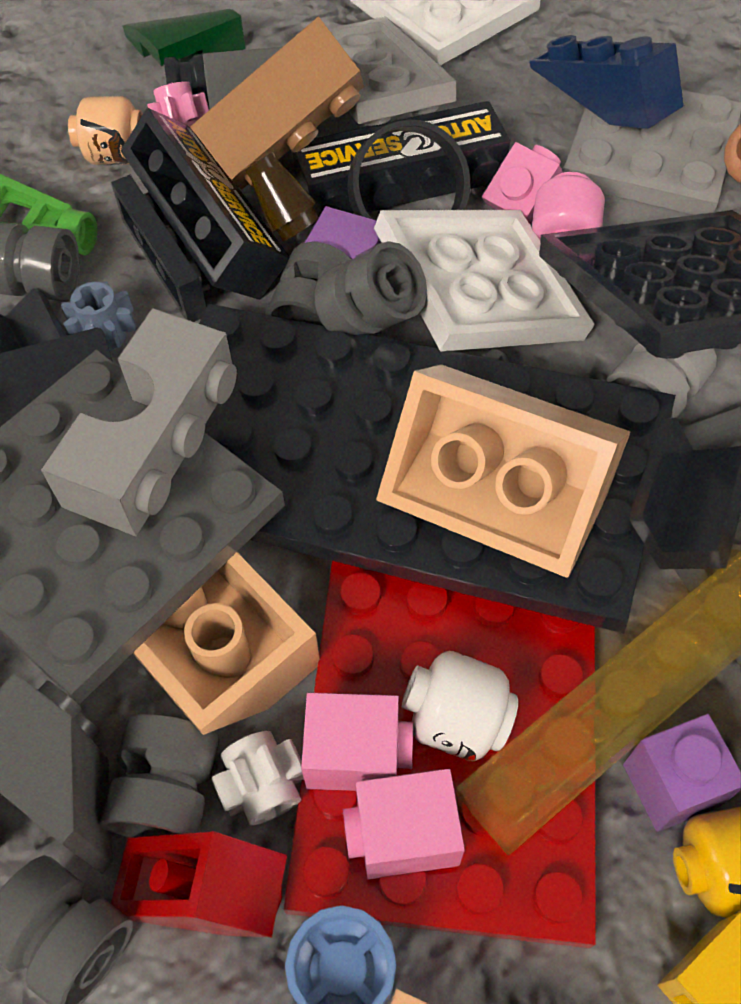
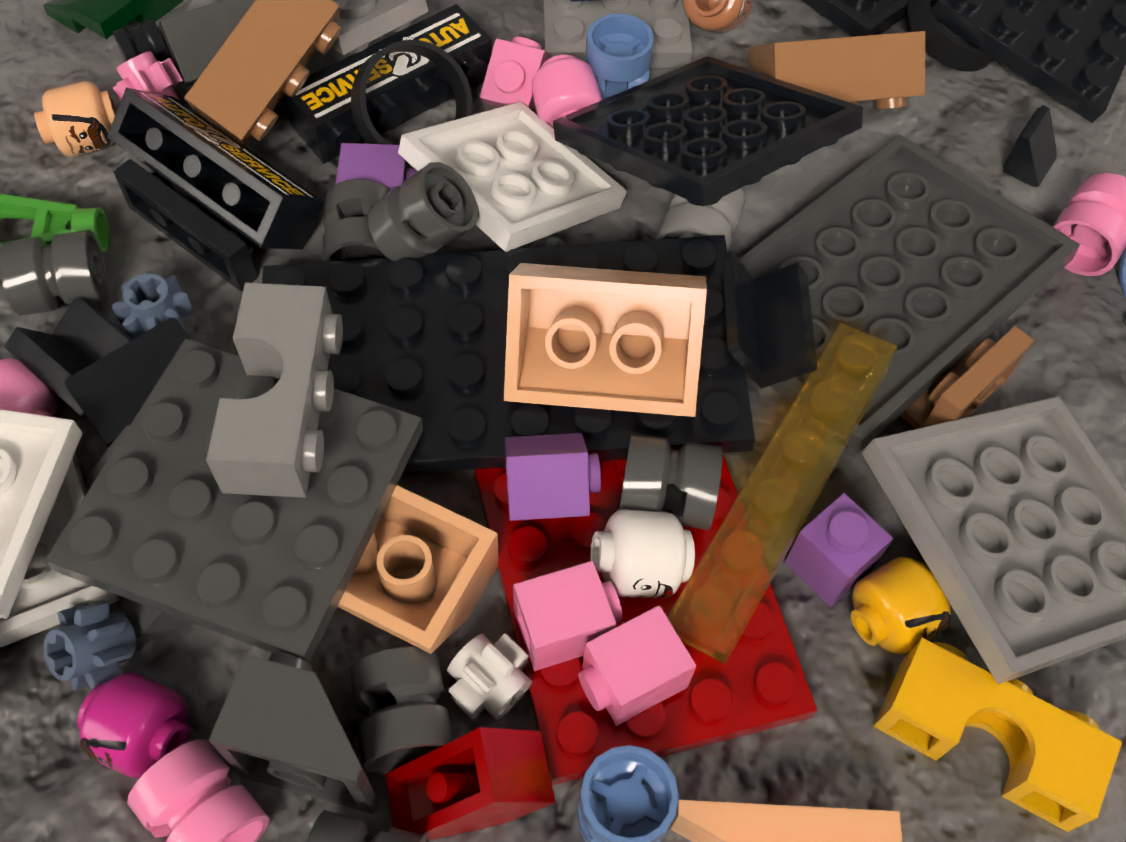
camera: 25 degrees left, 0 degrees up
(281, 197) = (297, 145): dark brown cone -> none
(391, 591) = (550, 476): none -> medium lavender brick
(518, 637) = (672, 480): none -> dark grey wheel
(636, 183) = (619, 52): none -> medium blue wheel

